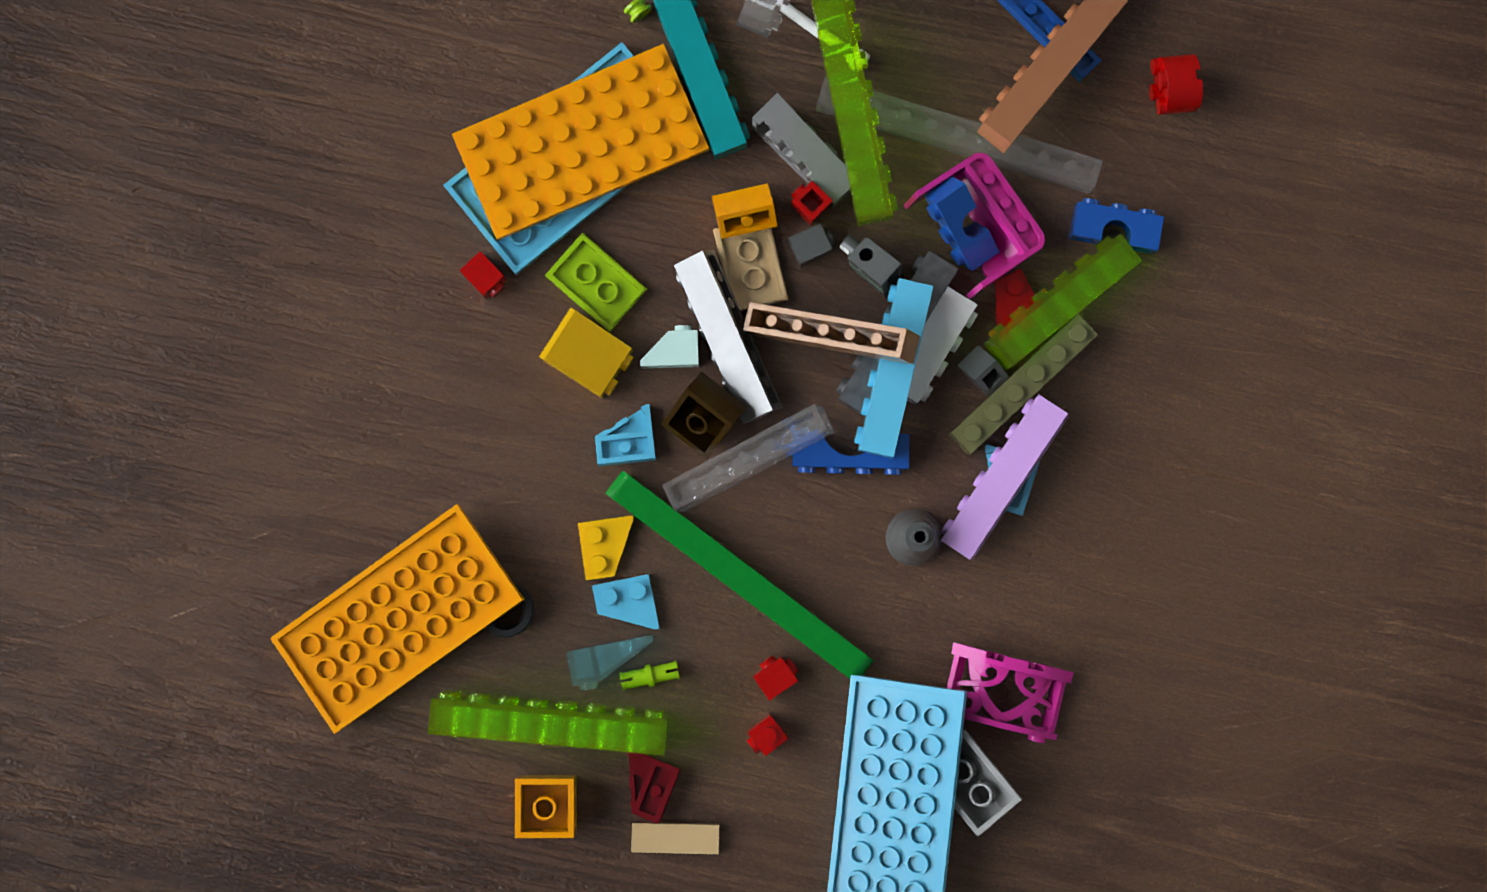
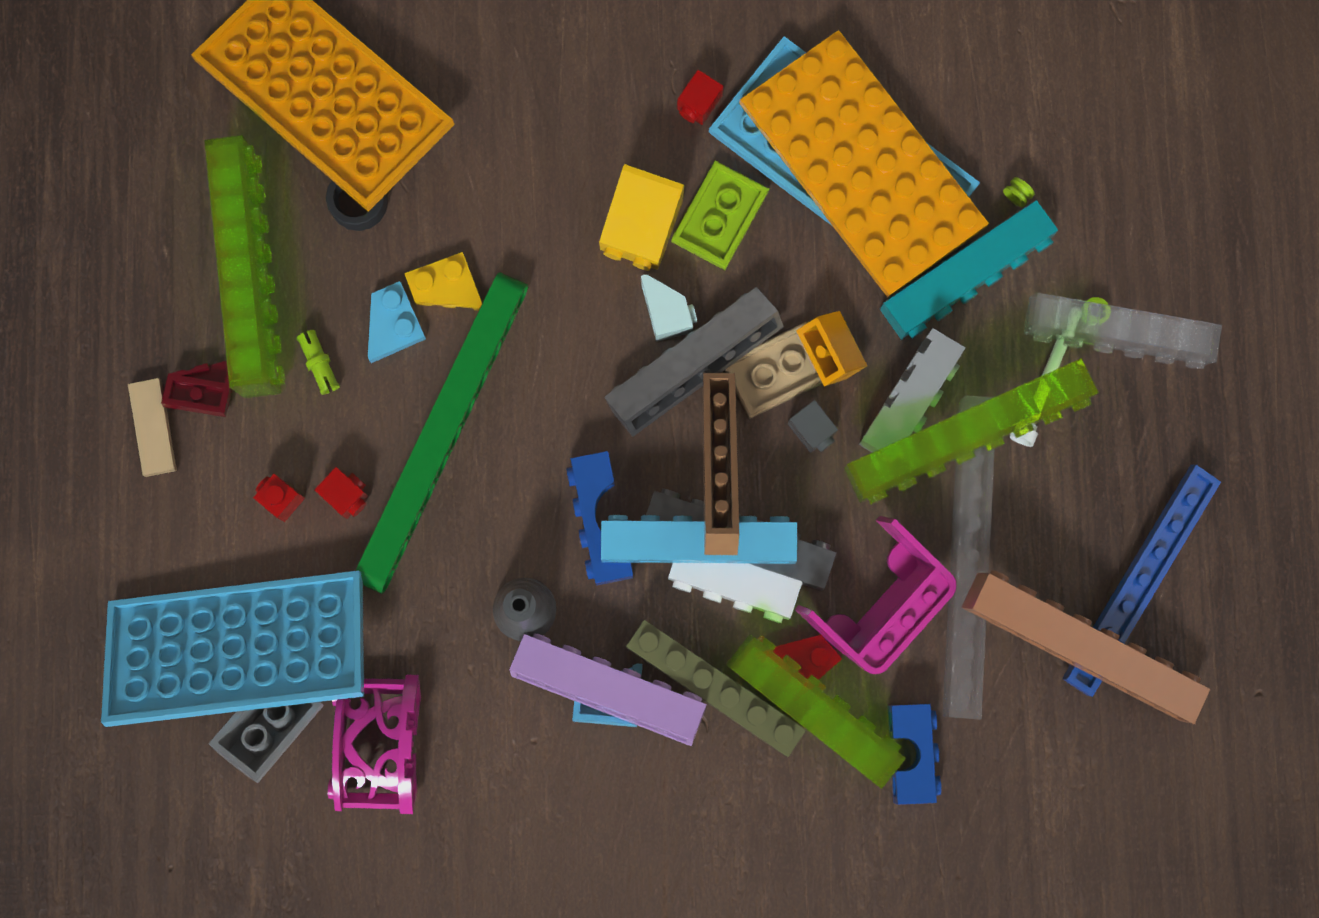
camera: 75 degrees right, 5 degrees down
(545, 806) = (156, 283): light orange brick -> none
(597, 662) = (320, 304): clear light blue slope -> none
(627, 441) = (560, 283): medium azure wing -> none
(703, 415) = (603, 352): dark brown brick -> none
(748, 458) = (567, 408): clear brick -> none
(810, 202) = (858, 415): red brick -> none
(877, 272) = (809, 495): dark grey torso -> none
(949, 206) = (890, 561): blue arch -> none
(983, 371) = (719, 641): dark grey brick -> none
(1176, 84) = (1086, 784): red brick -> none

